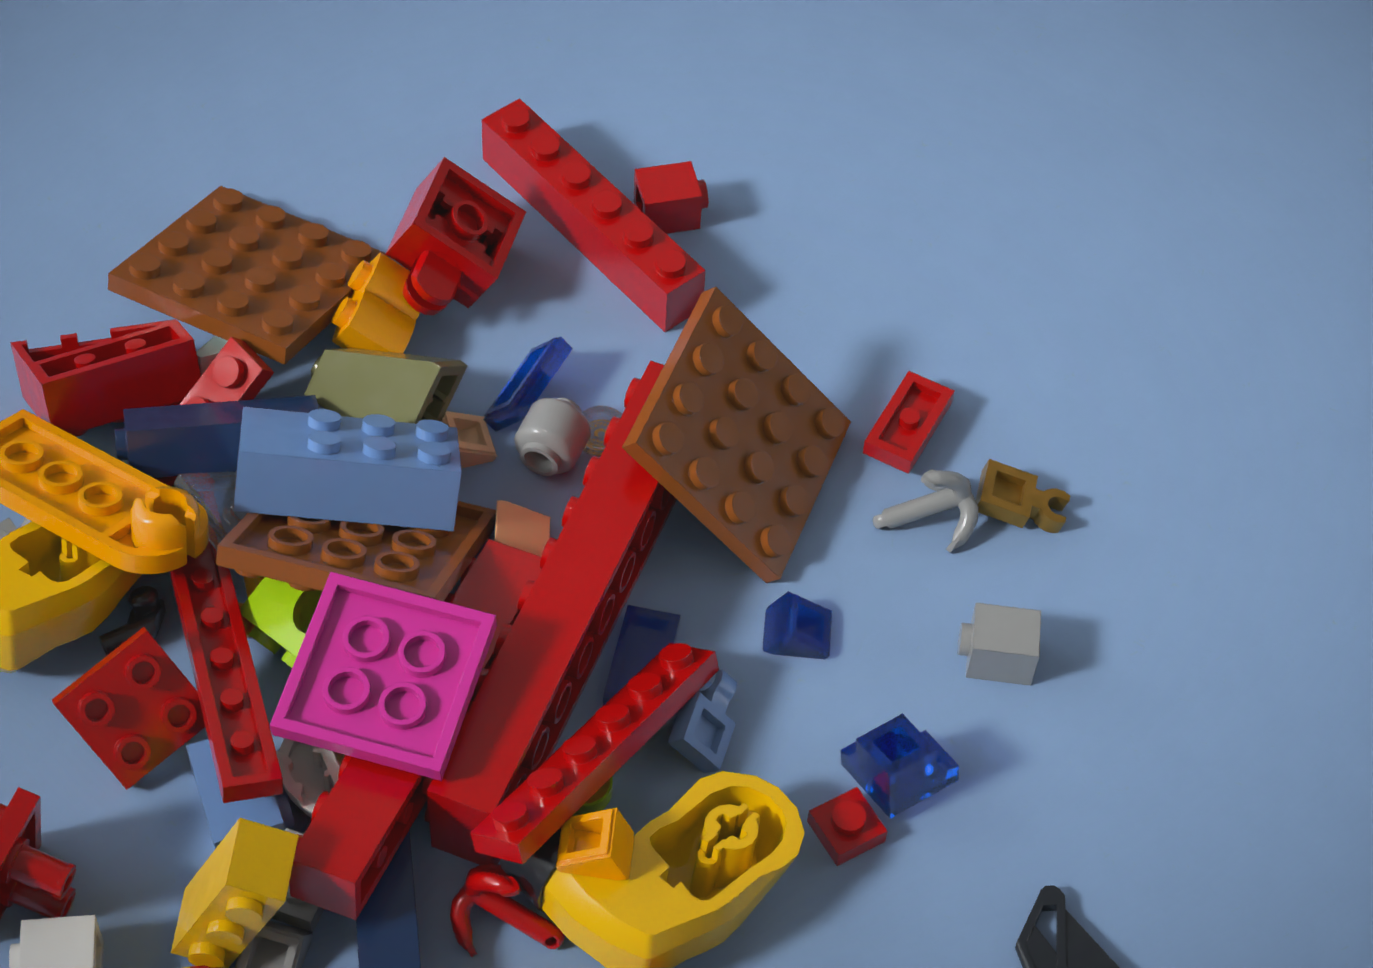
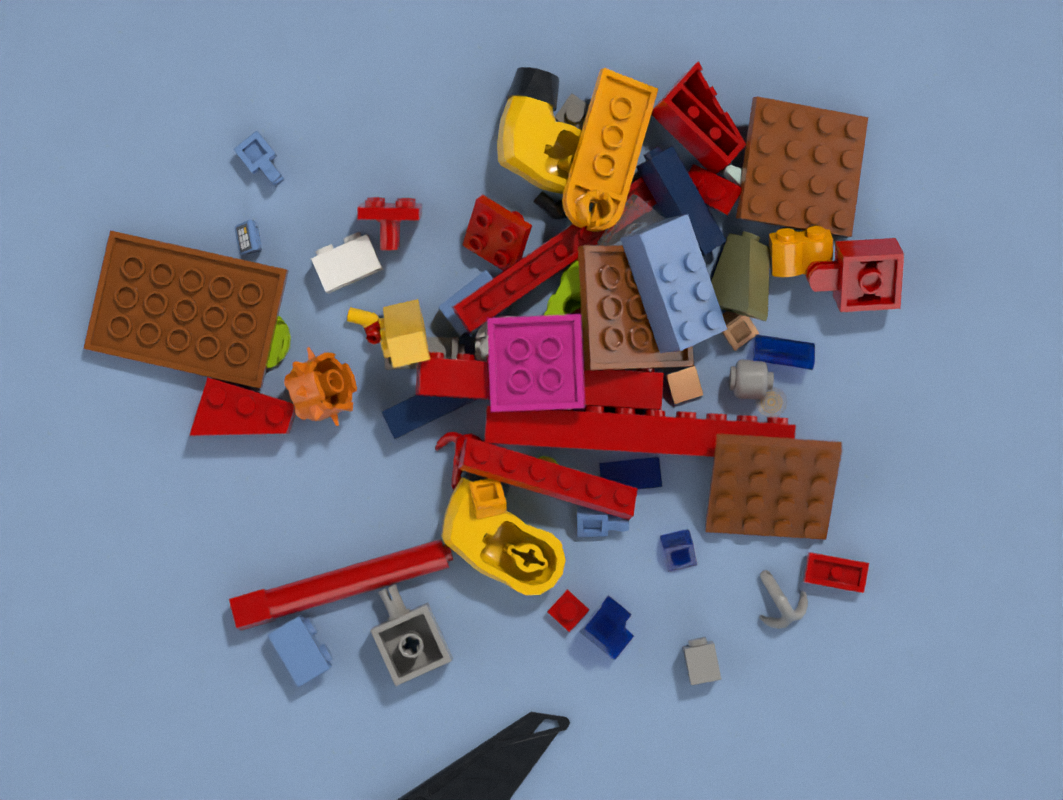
camera: 75 degrees right, 35 degrees up
(592, 214) = (922, 342): red brick -> none
(671, 196) = (953, 385): red brick -> none
(1013, 498) = (804, 642): pearl gold plate -> none

